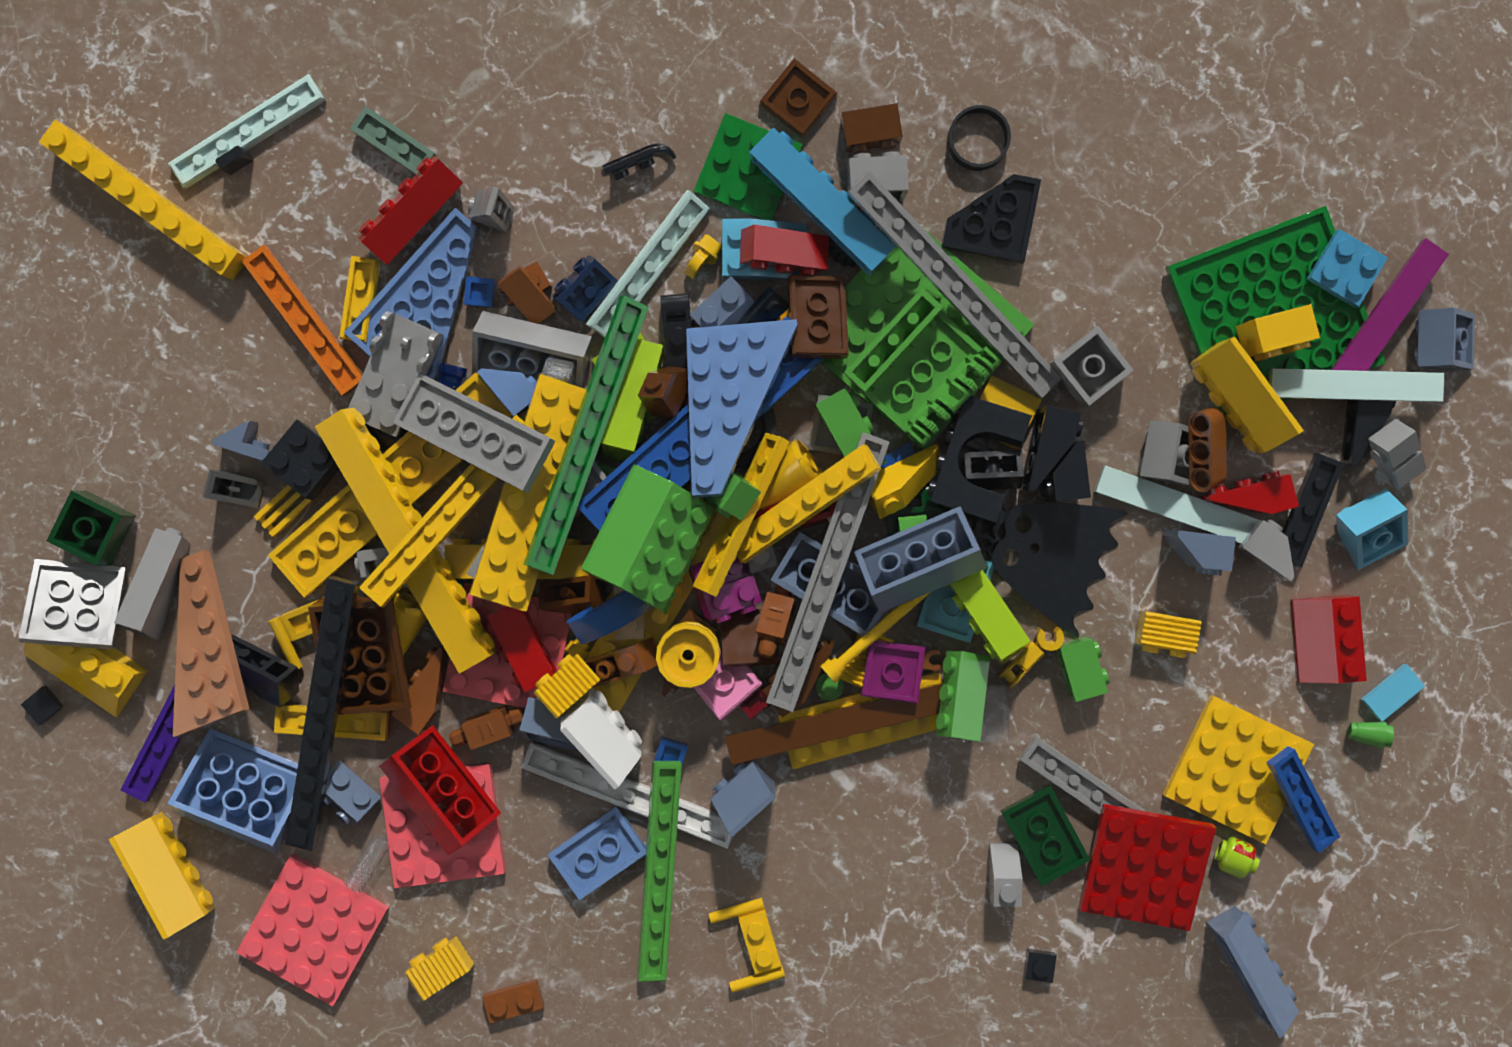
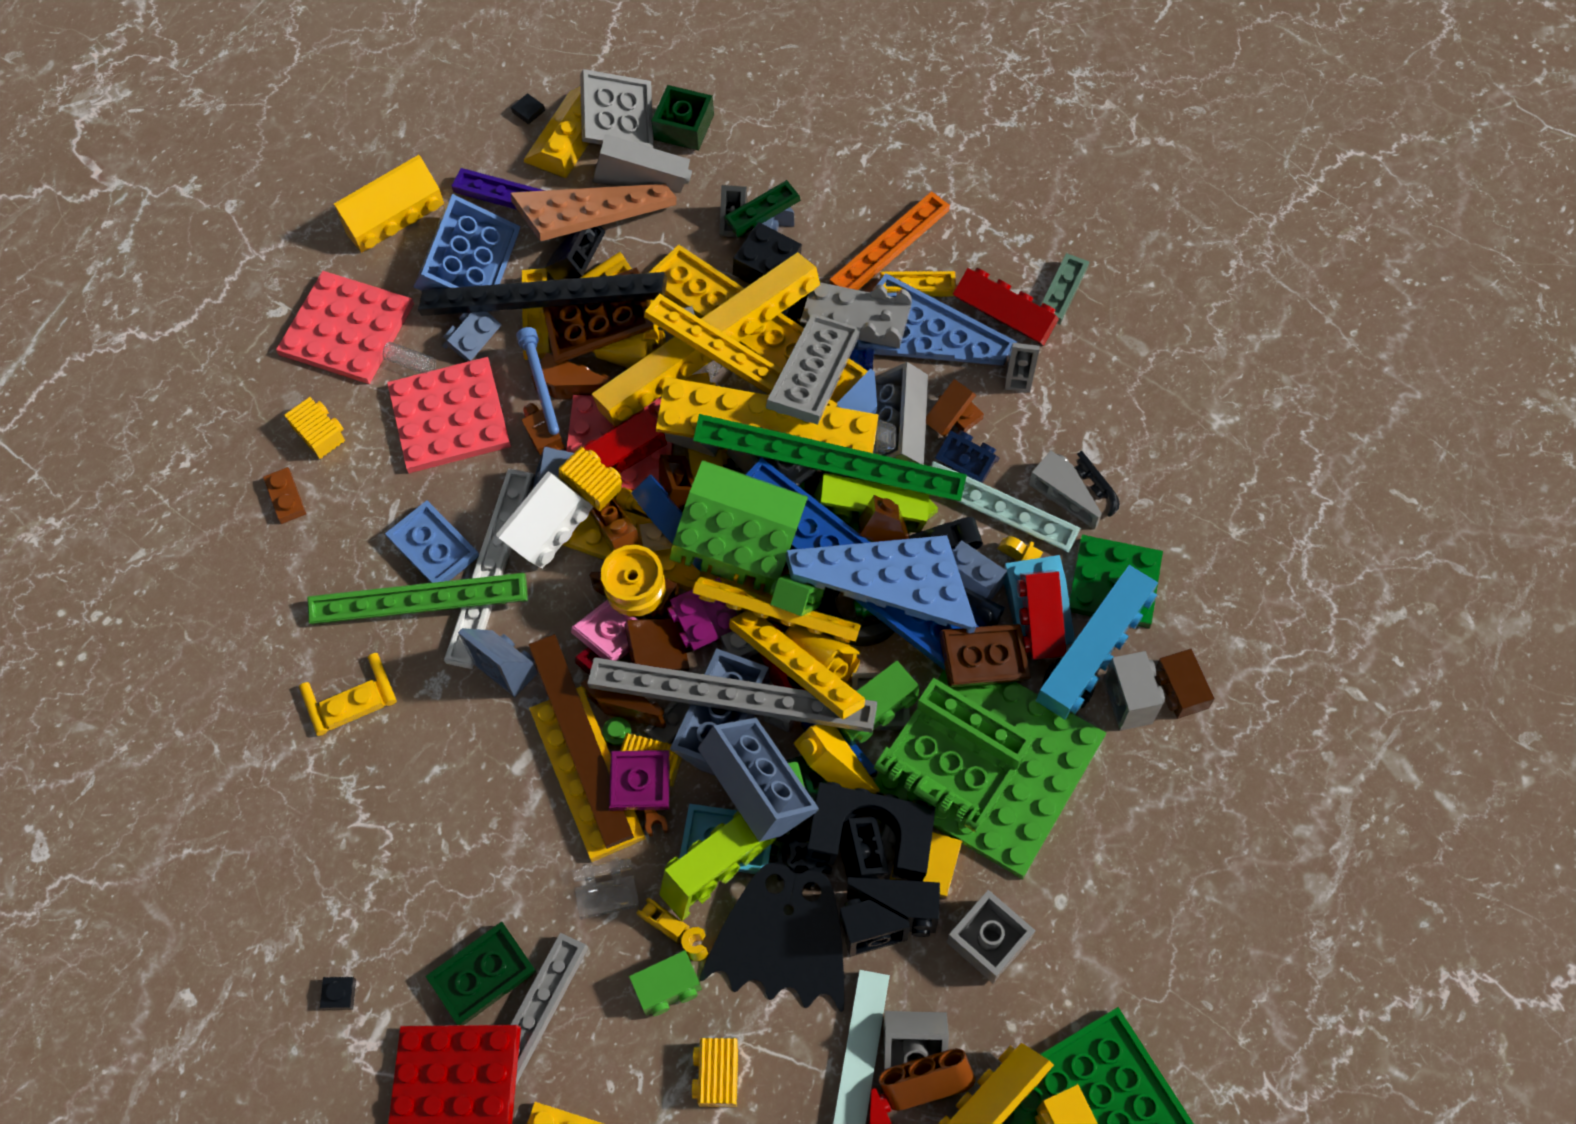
camera: 80 degrees right, 25 degrees down
(143, 199) = (966, 119): yellow brick -> none
(234, 160) = (1016, 175): black tile -> none
(240, 455) = (762, 208): none -> dark green tile
(247, 130) = (1045, 184): light aqua tile -> none
(267, 523) = (722, 248): yellow tile -> none
(374, 733) = (528, 340): none -> medium blue piece
(440, 790) = (481, 399): red slope -> none
(479, 292) = (944, 372): blue plate -> none
(635, 196) = (1063, 485): none -> light grey slope
(670, 750) = (537, 594): blue plate -> none
(775, 621) = (675, 656): dark orange piece -> none
(798, 98) = (1195, 616): reddish brown tile -> none
(835, 667) = (635, 718): yellow piece -> none
(953, 284) = (1042, 778): light grey plate -> none
(963, 696) = (622, 851): bright green brick -> none
(986, 110) = (1222, 771): black tyre -> none
(996, 222) = (1121, 821): black plate -> none
(1005, 875) = (434, 936): light grey slope -> none
(1204, 551) = (813, 1090): sand blue slope -> none

